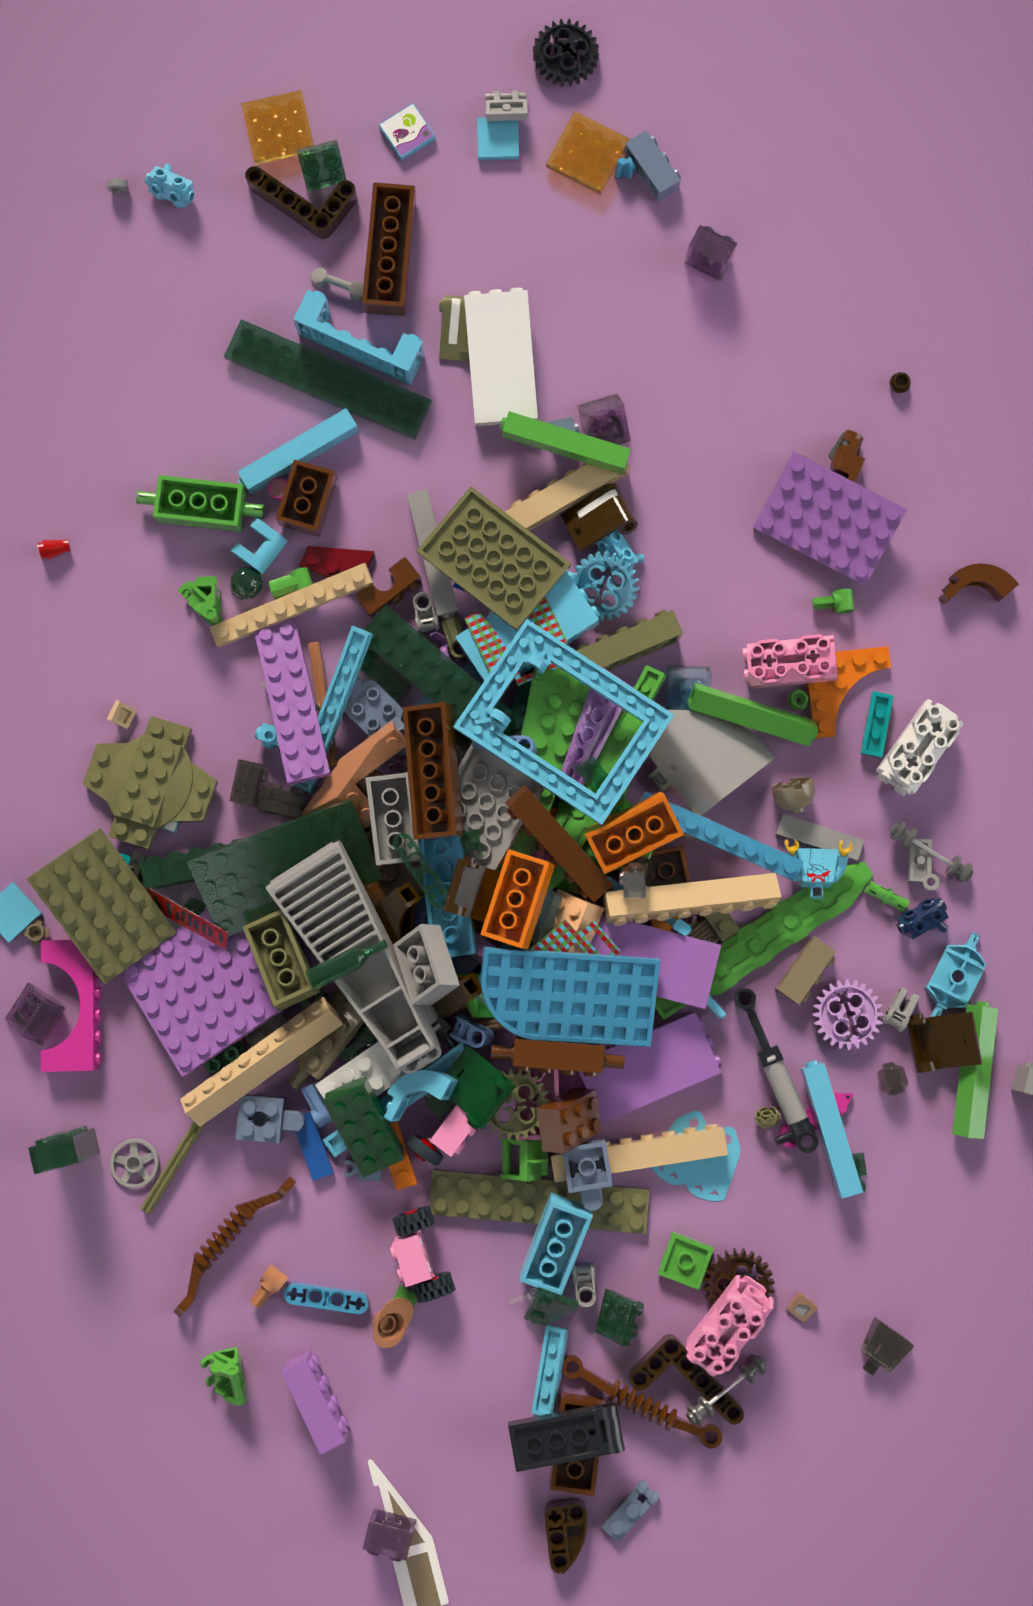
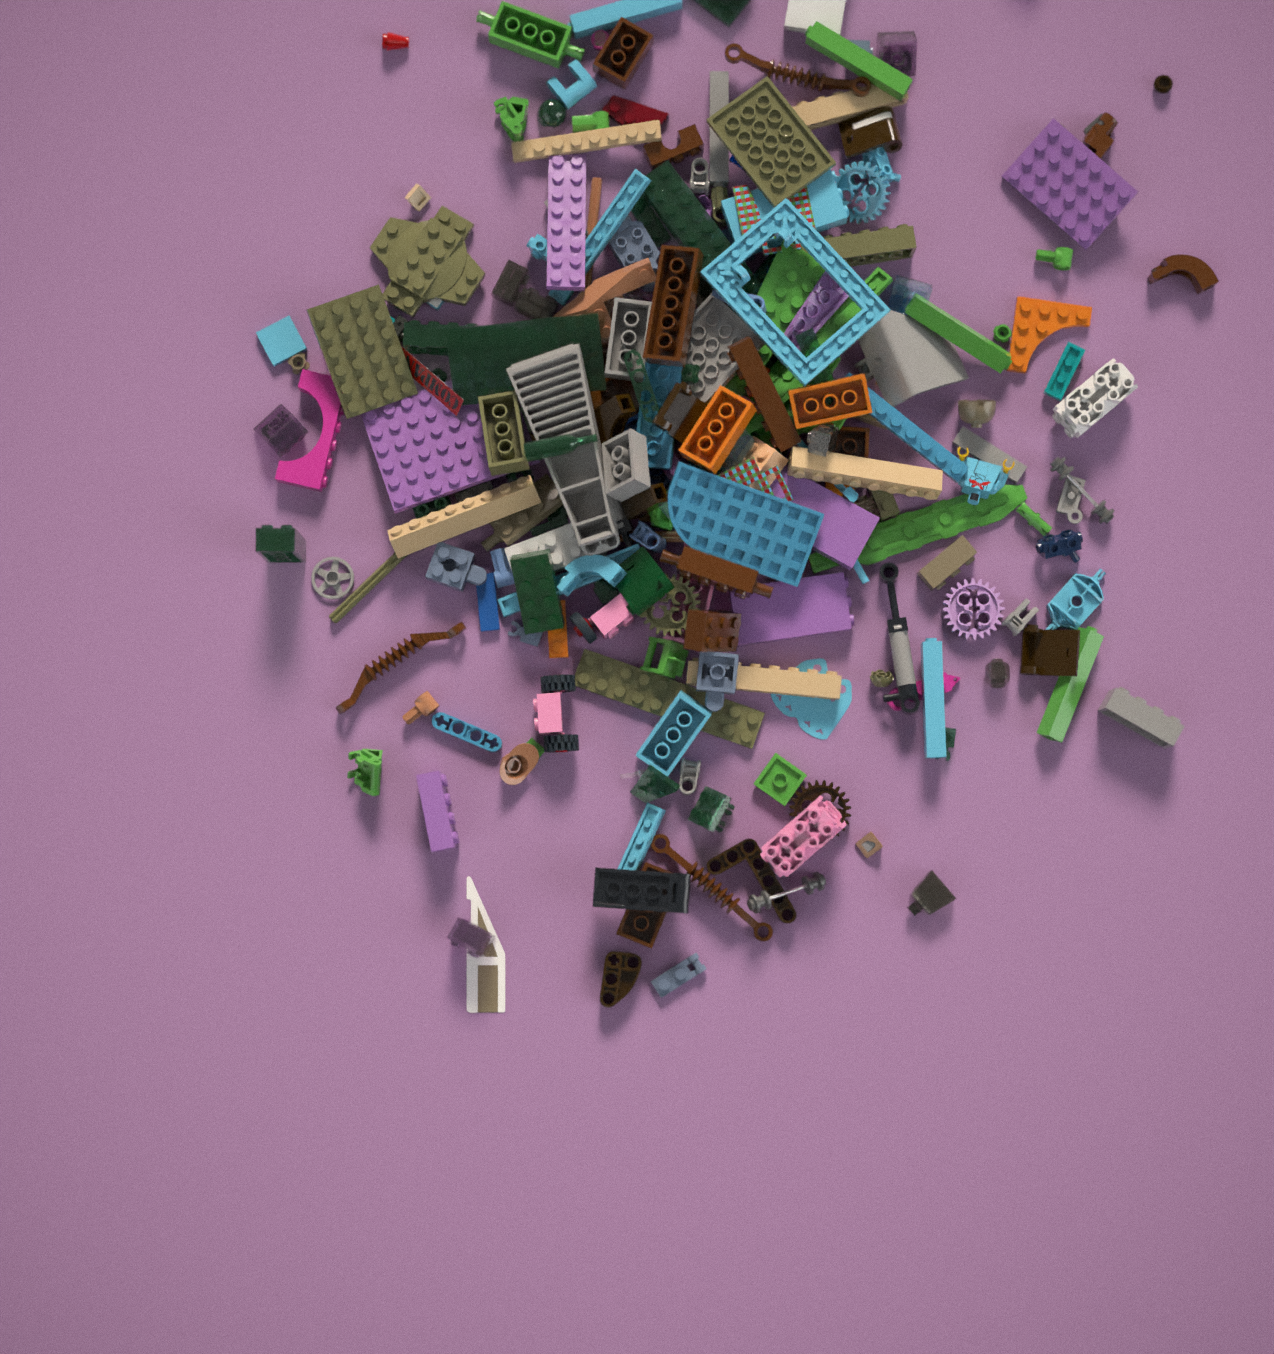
camera: 15 degrees right, 0 degrees up
(471, 473) = (823, 82): none -> reddish brown piece
(790, 661) = (1003, 296): bright pink brick -> none

